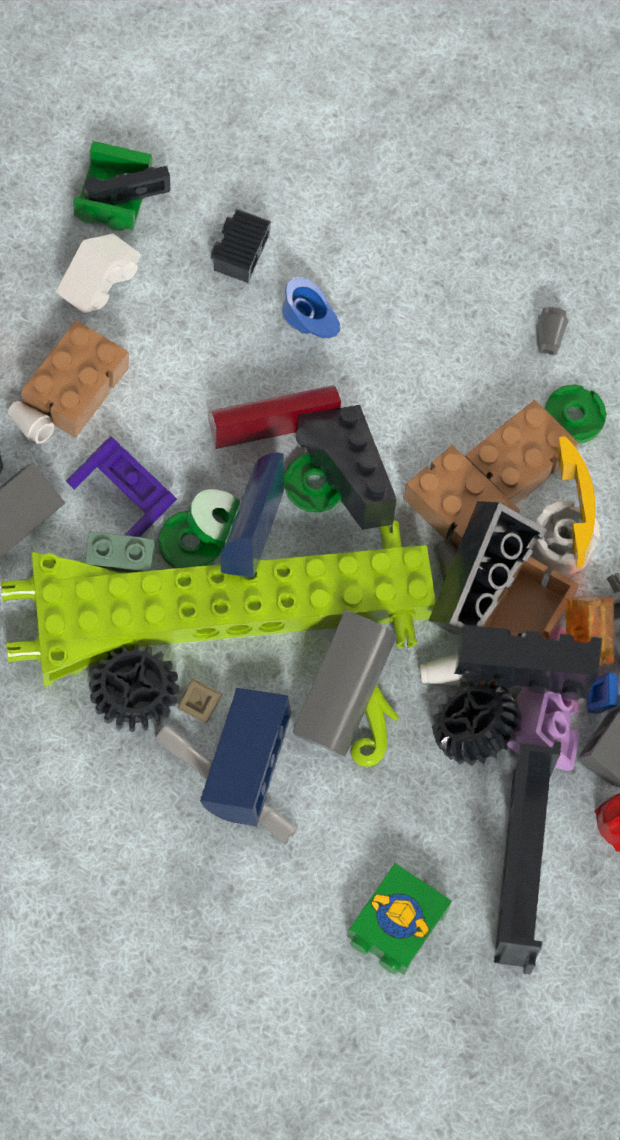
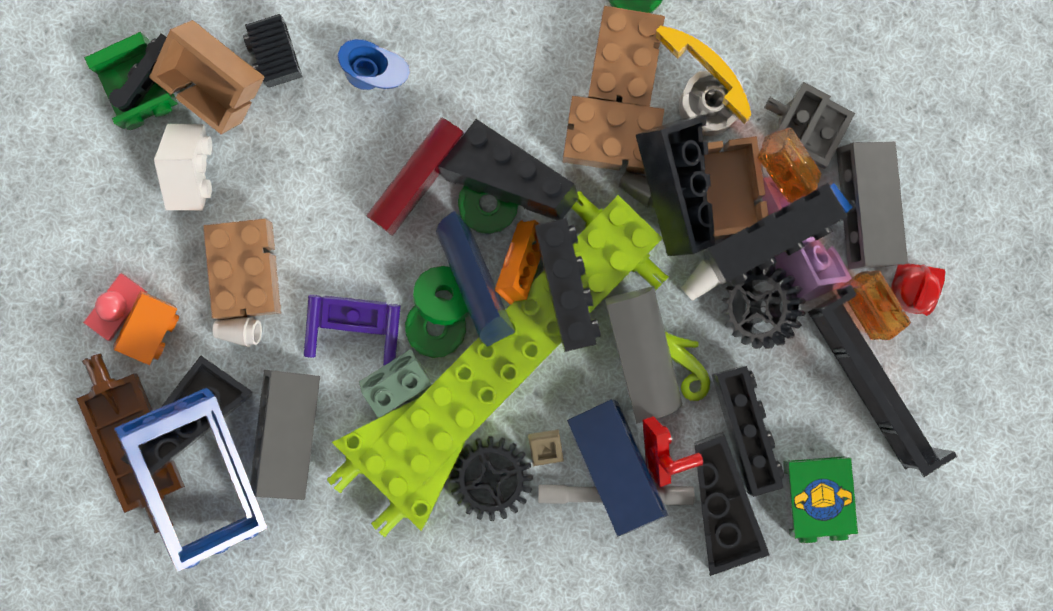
camera: 30 degrees left, 20 degrees up
(185, 227) = (221, 77): none -> medium nougat piece
(287, 776) = (657, 454): none -> red plate
(304, 536) = (519, 263): none -> orange piece
(307, 868) = (728, 517): none -> black wedge
(323, 571) = (565, 285): none -> black brick
(380, 813) = (747, 430): none -> black brick
(574, 795) = (877, 306): none -> clear orange brick

